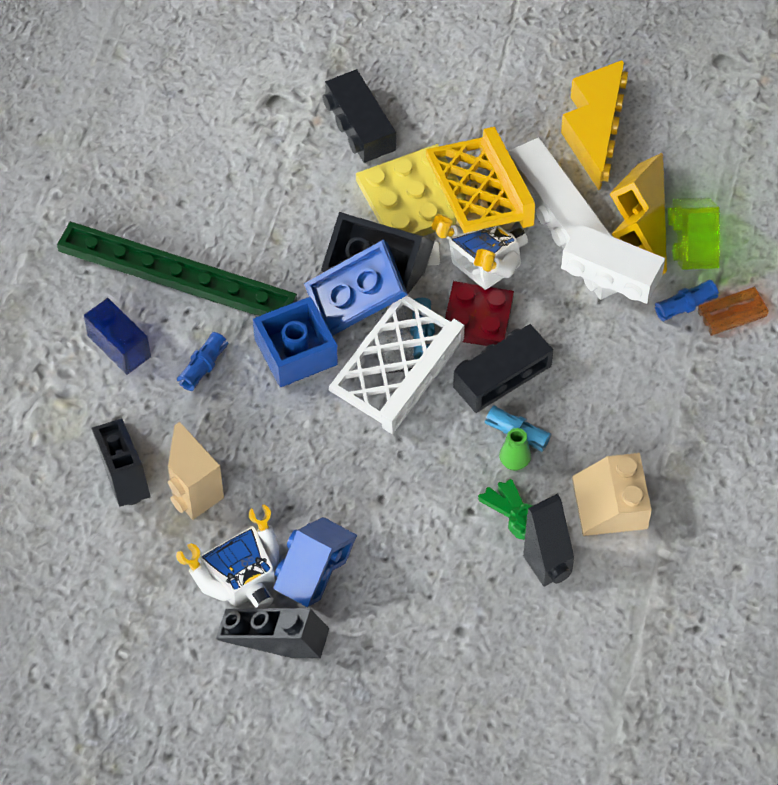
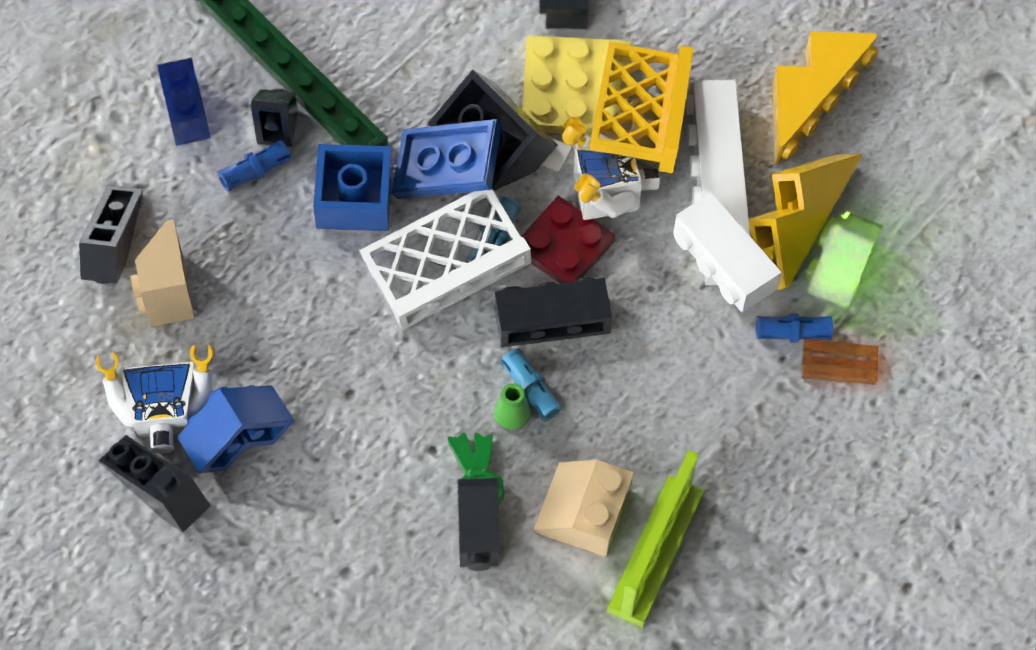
camera: 25 degrees right, 5 degrees up
(199, 315) = (274, 116): none -> black slope
(682, 498) = (657, 545): none -> lime fence

